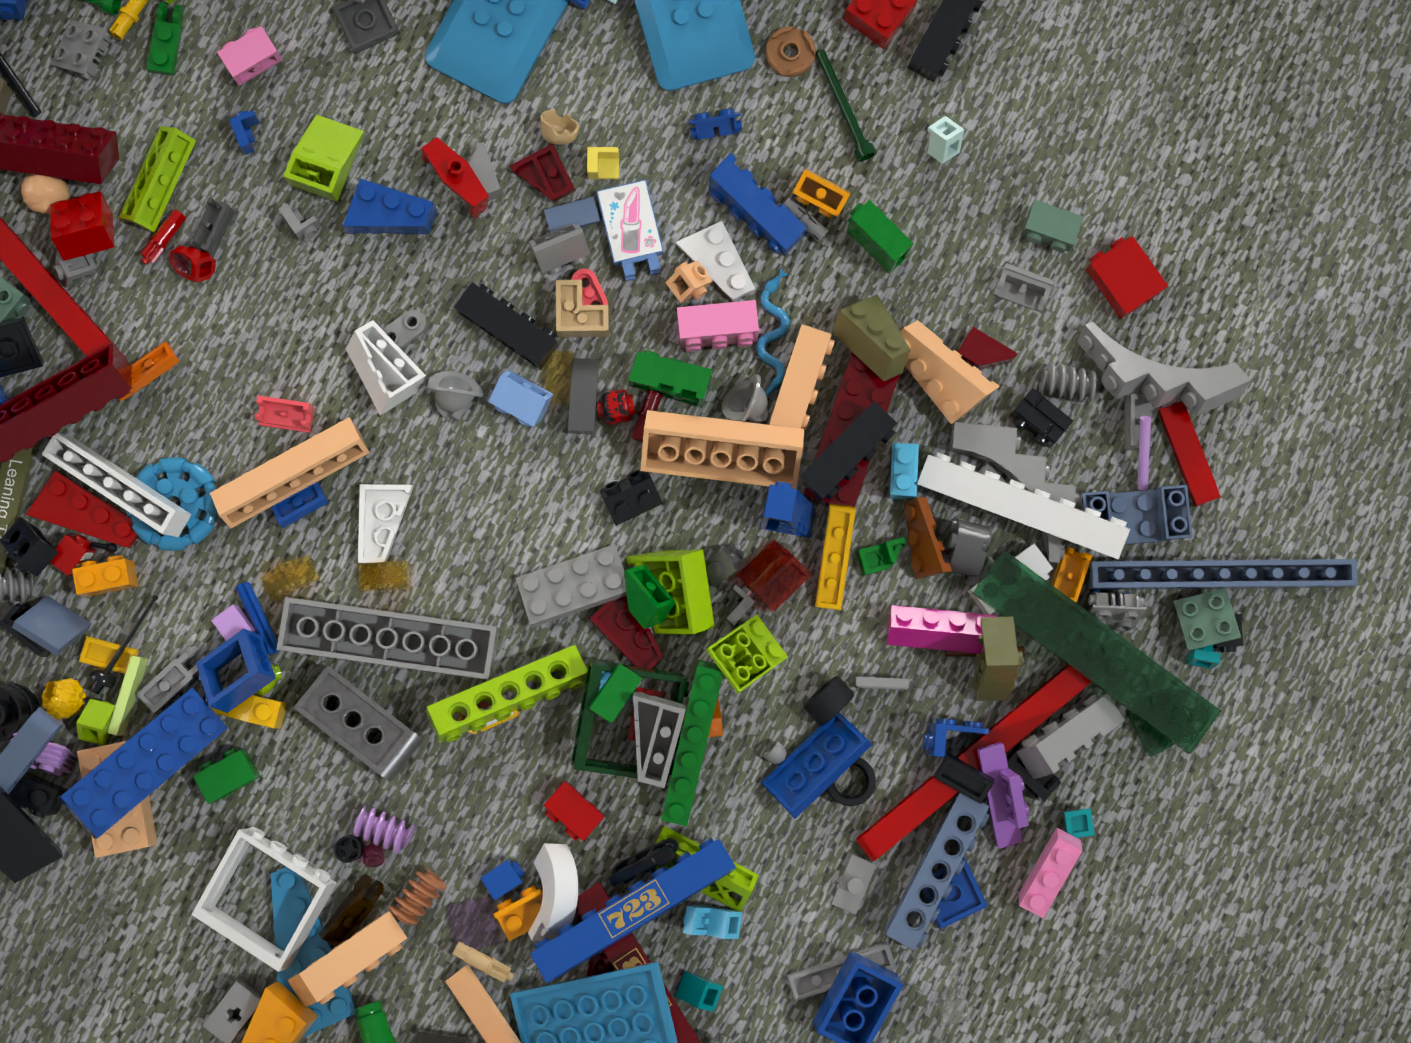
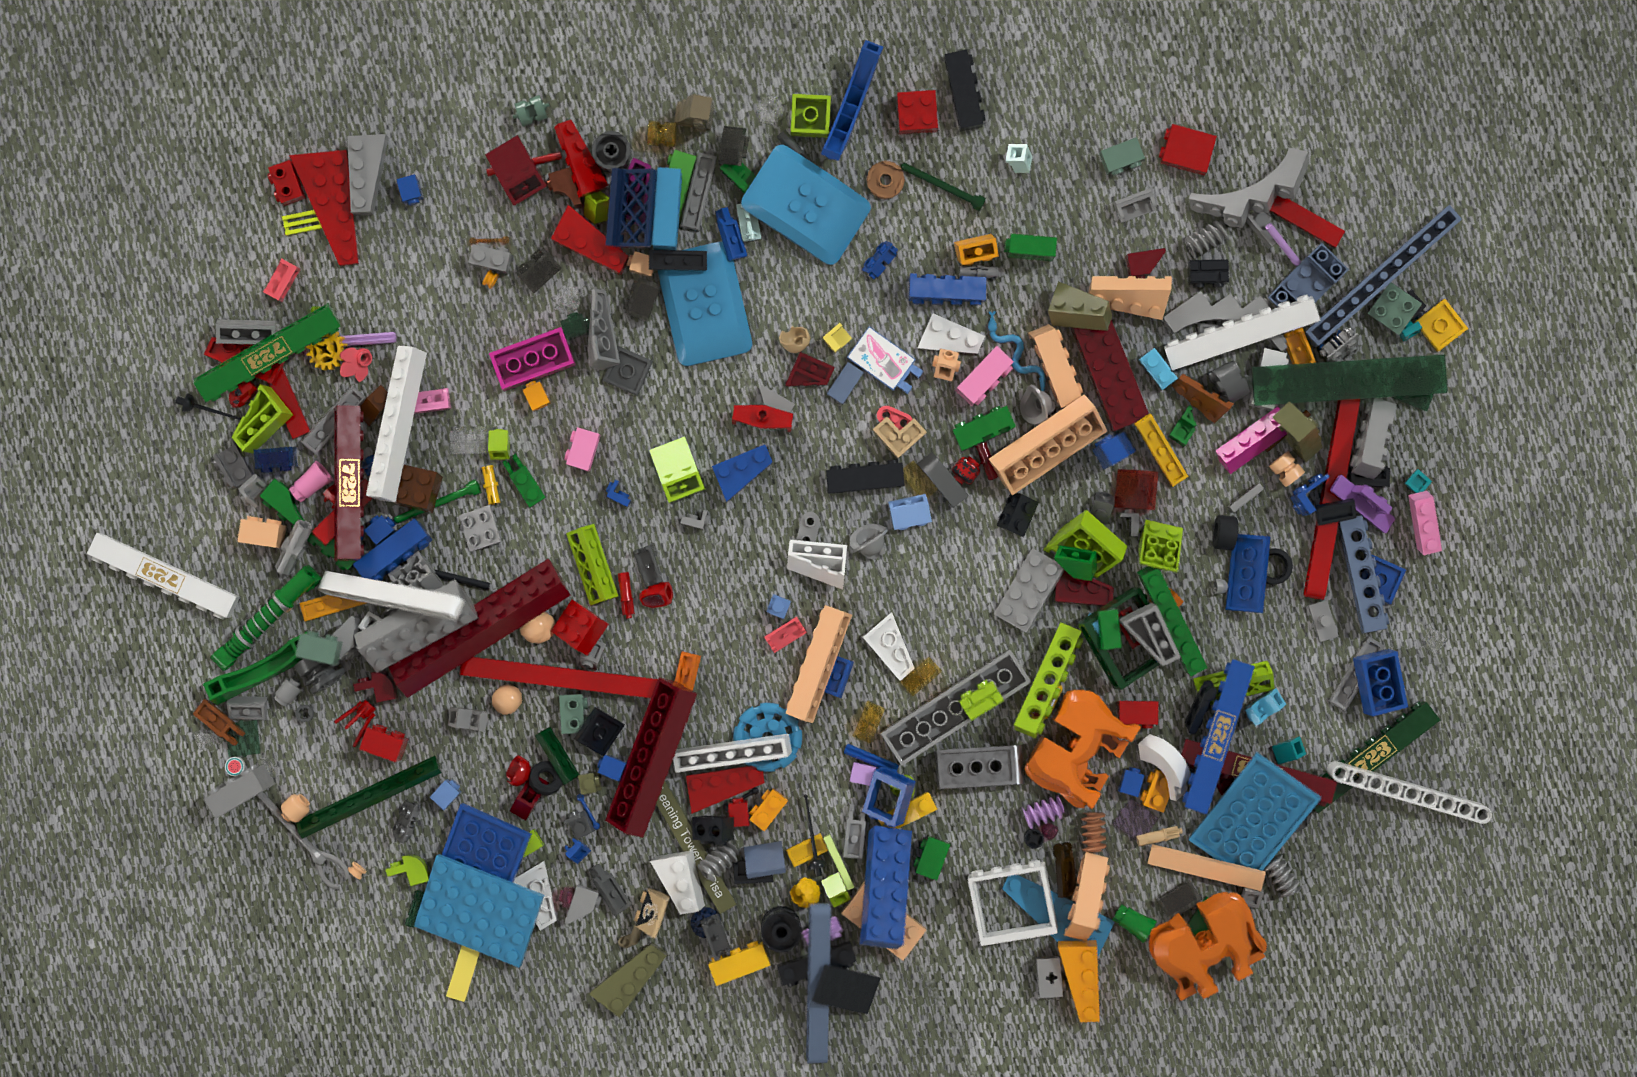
camera: 35 degrees left, 5 degrees up
(303, 380) = (778, 606): none -> medium blue brick
(416, 651) = (980, 700): none -> lime brick
(445, 806) = (1068, 770): none -> orange animal
(560, 248) = (856, 408): light grey slope -> none
(848, 451) = (1121, 387): black brick -> none
(950, 689) = (1286, 469): none -> light nougat wheel
(1241, 681) = (1441, 325): none -> yellow tile

